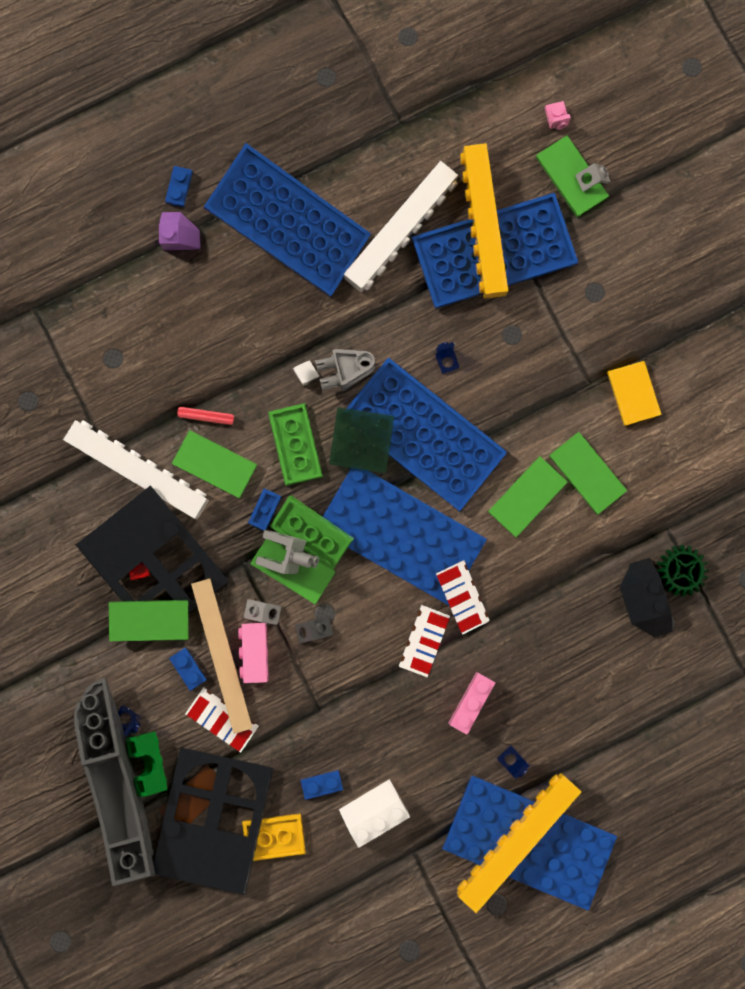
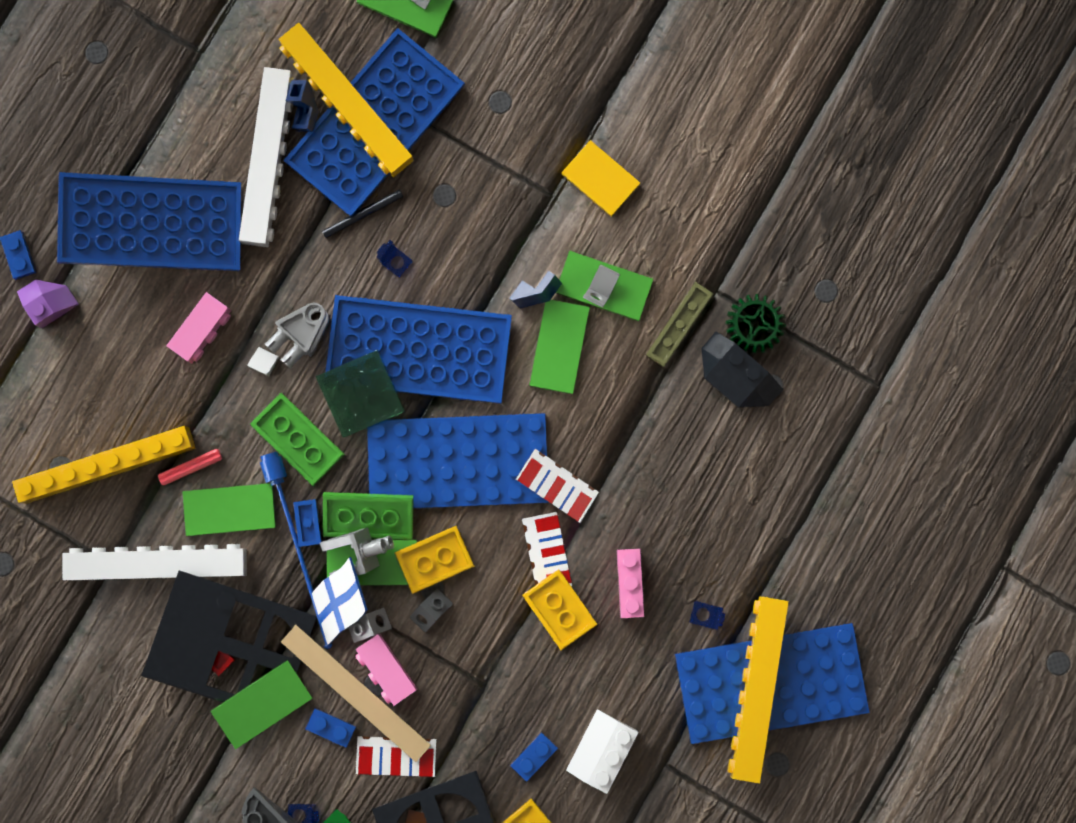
camera: 25 degrees left, 0 degrees up
(145, 375) = (103, 465): none -> yellow brick
(253, 578) = (339, 597): none -> flag
(275, 320) = (199, 328): none -> bright pink brick
(339, 594) = (434, 559): none -> yellow tile
(408, 689) = (559, 609): none -> yellow tile
(444, 311) = (362, 213): none -> black piece
(454, 199) = (302, 97): none -> dark blue slope
(527, 445) = (528, 296): none -> slope
(587, 472) = (601, 286): none -> light grey bracket
(625, 536) = (679, 324): none -> olive tile

